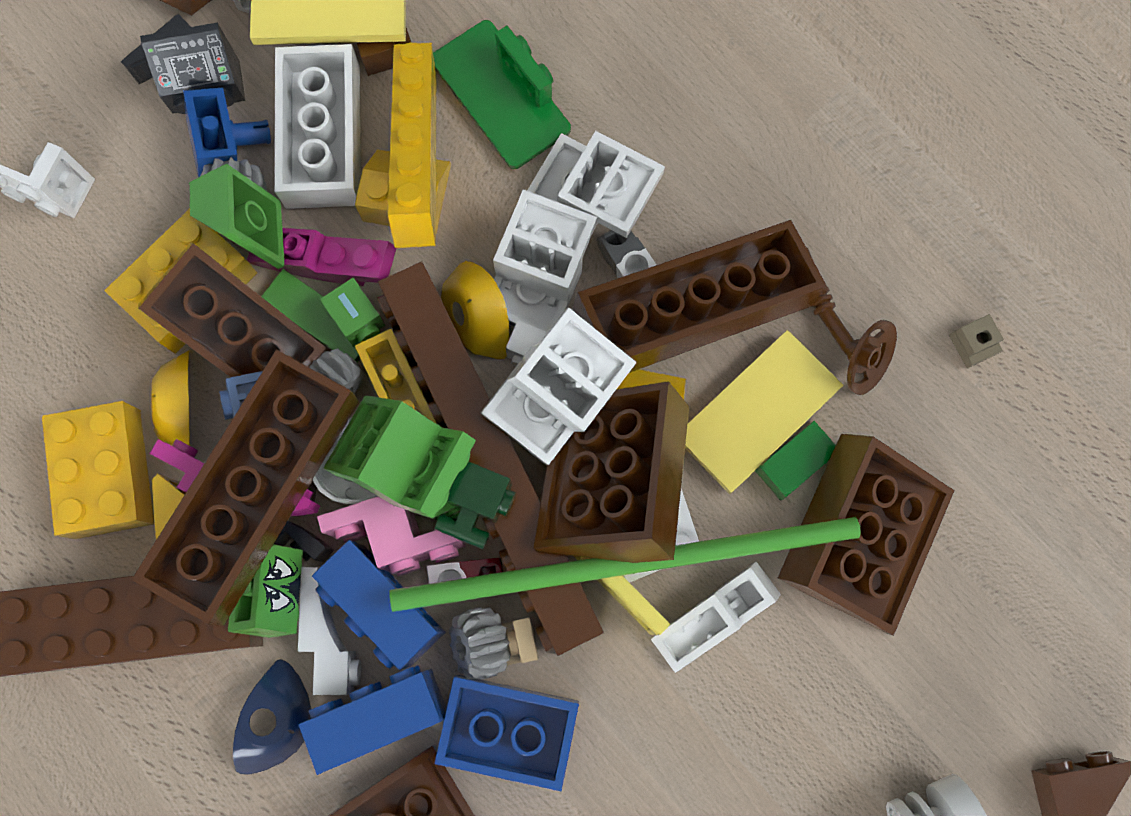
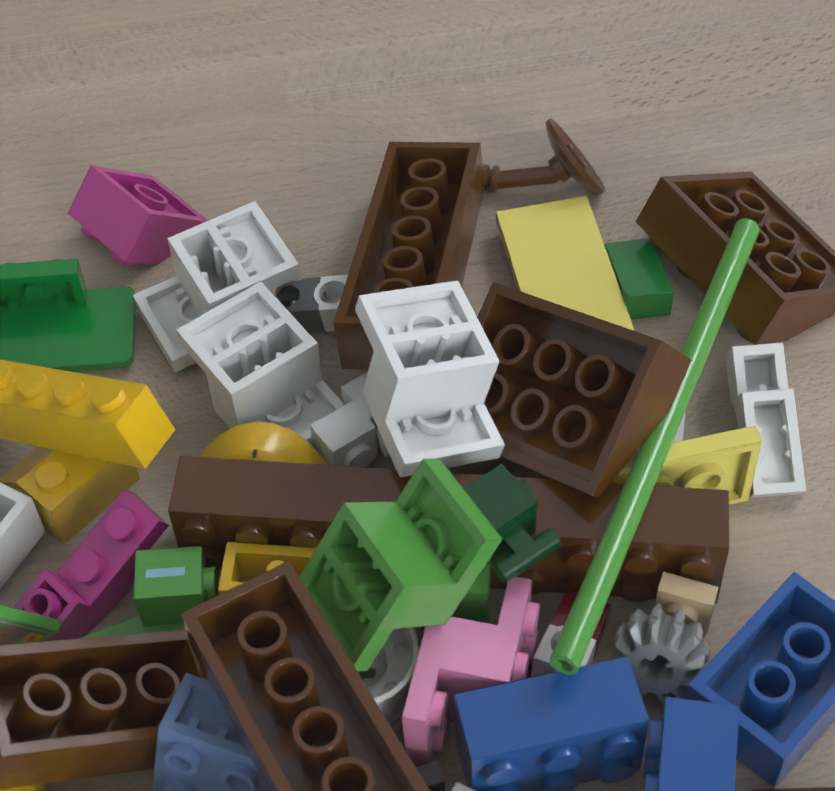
camera: 55 degrees left, 25 degrees down
(631, 87) = (131, 214): none -> dark pink slope
(969, 348) = (613, 83): dark tan piece -> none

